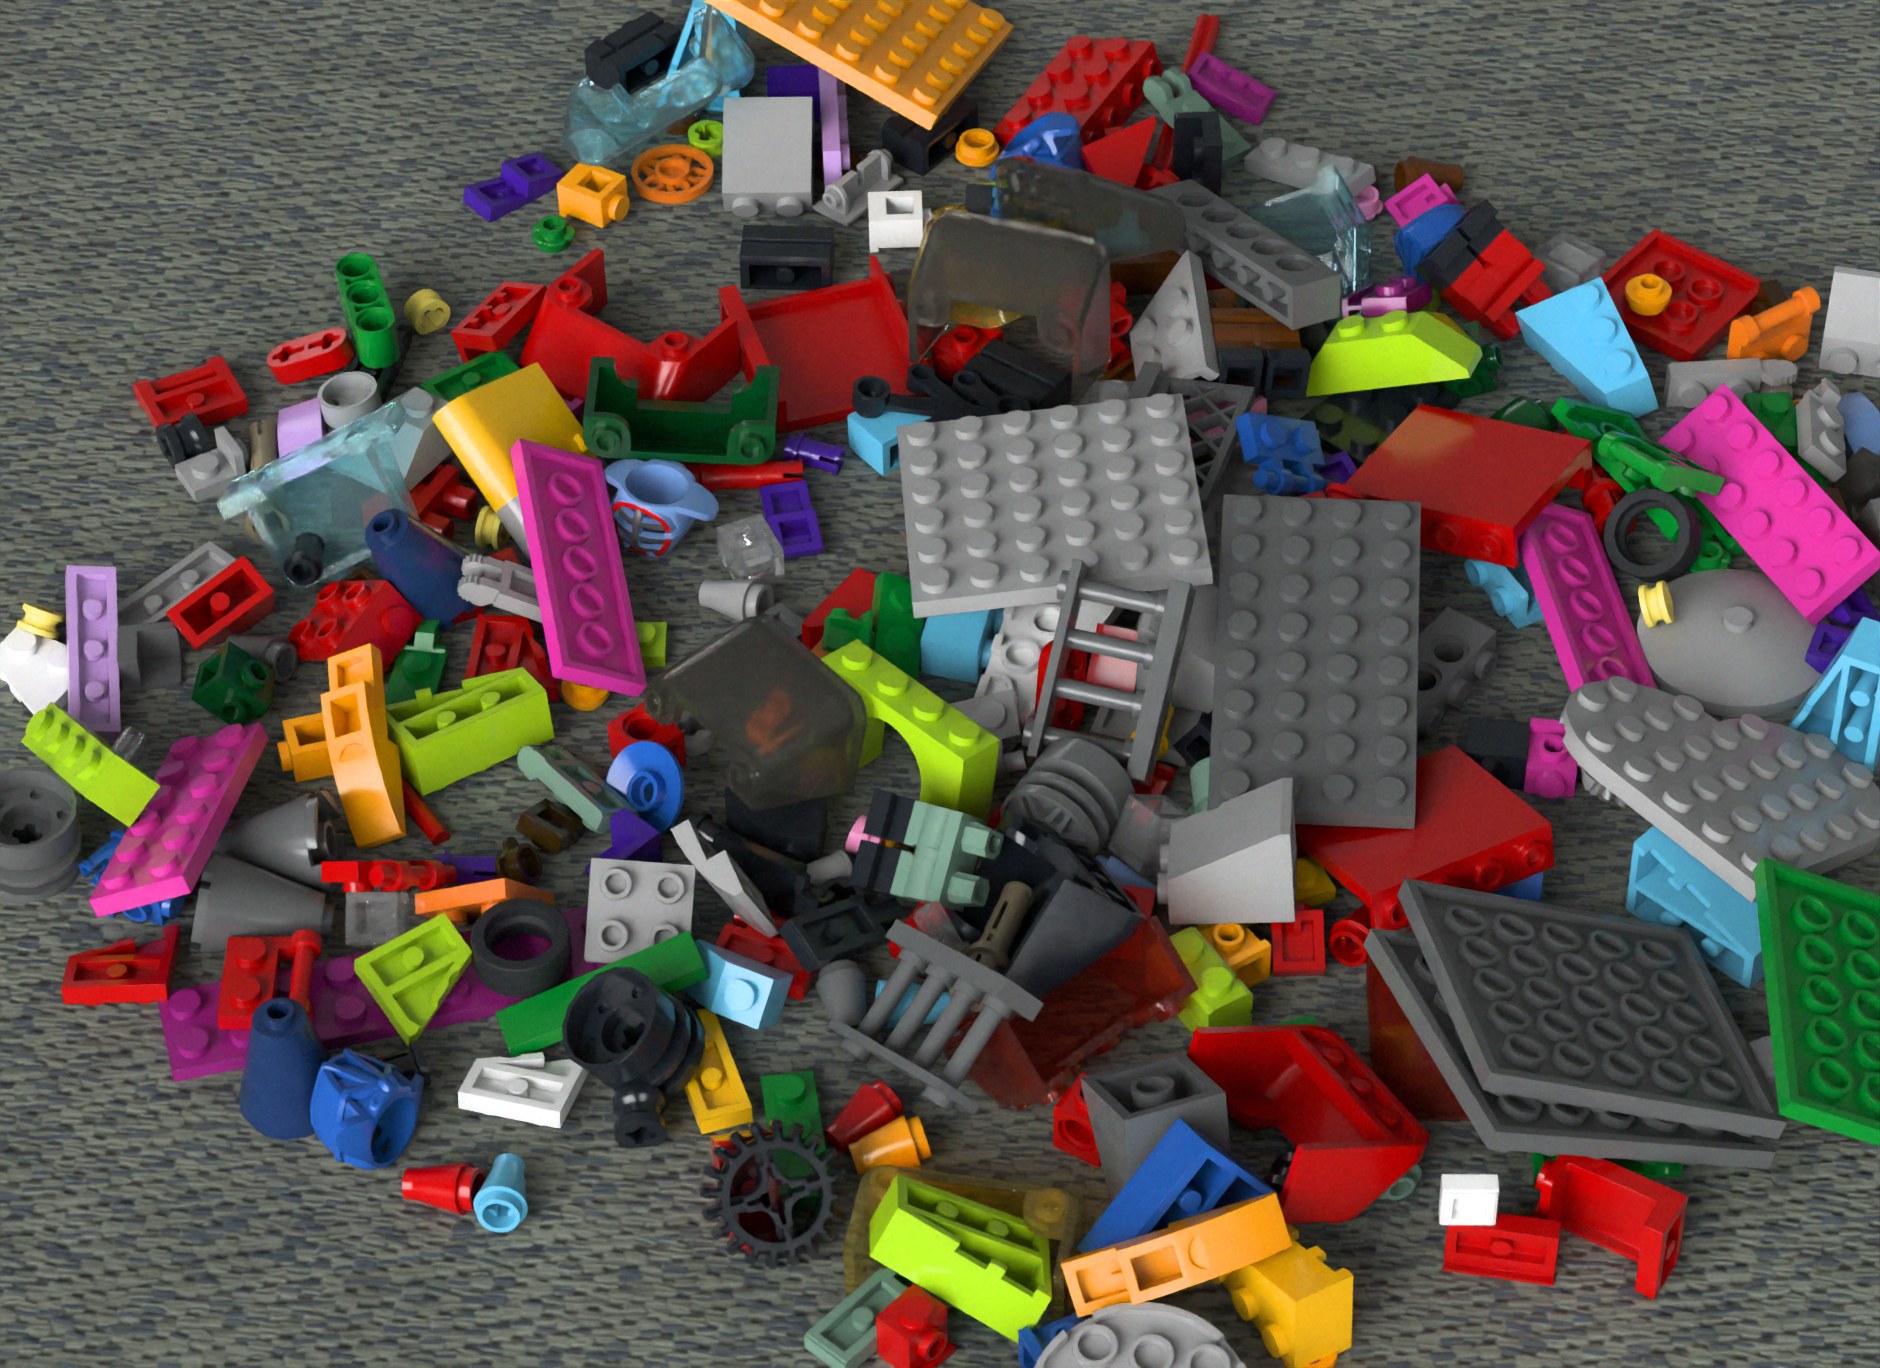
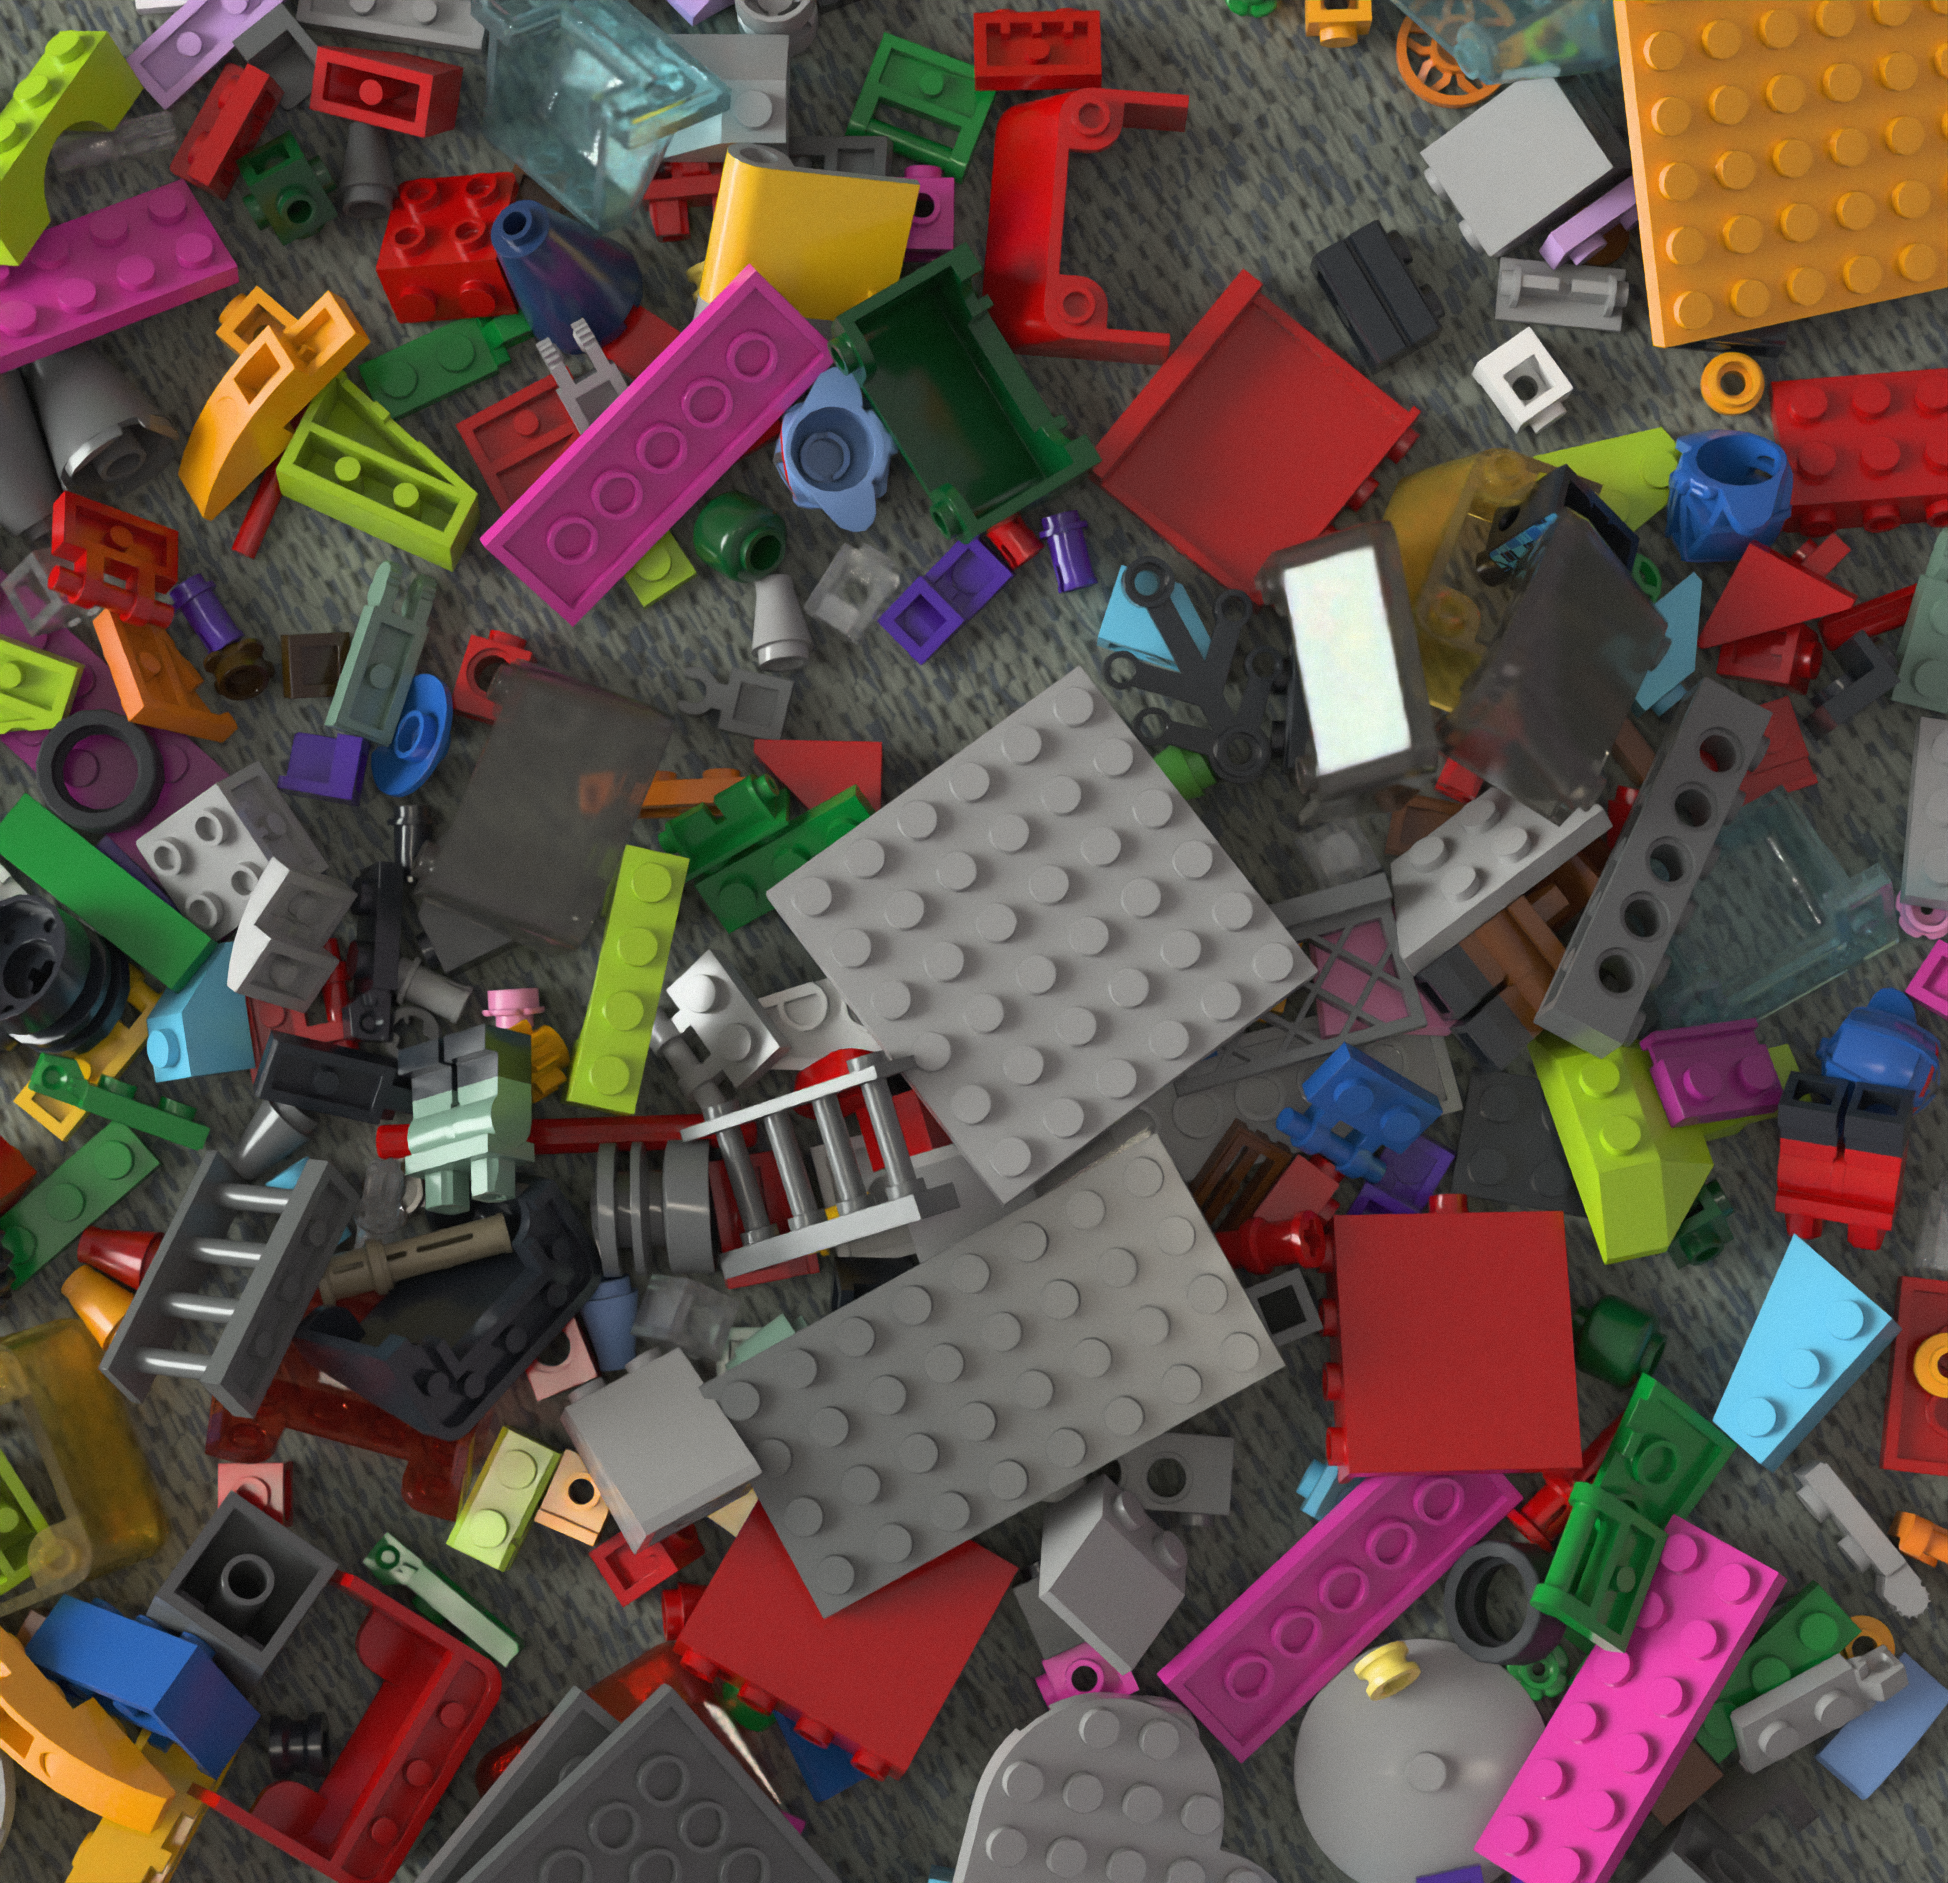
camera: 60 degrees right, 40 degrees up
(164, 699) = (226, 128): none -> red bracket
(304, 562) = (505, 128): black pin -> none
(665, 582) = (740, 537): none -> dark green head
(758, 1049) = (114, 1099): none -> green hinge
(1485, 685) = (1110, 1571): none -> light grey slope

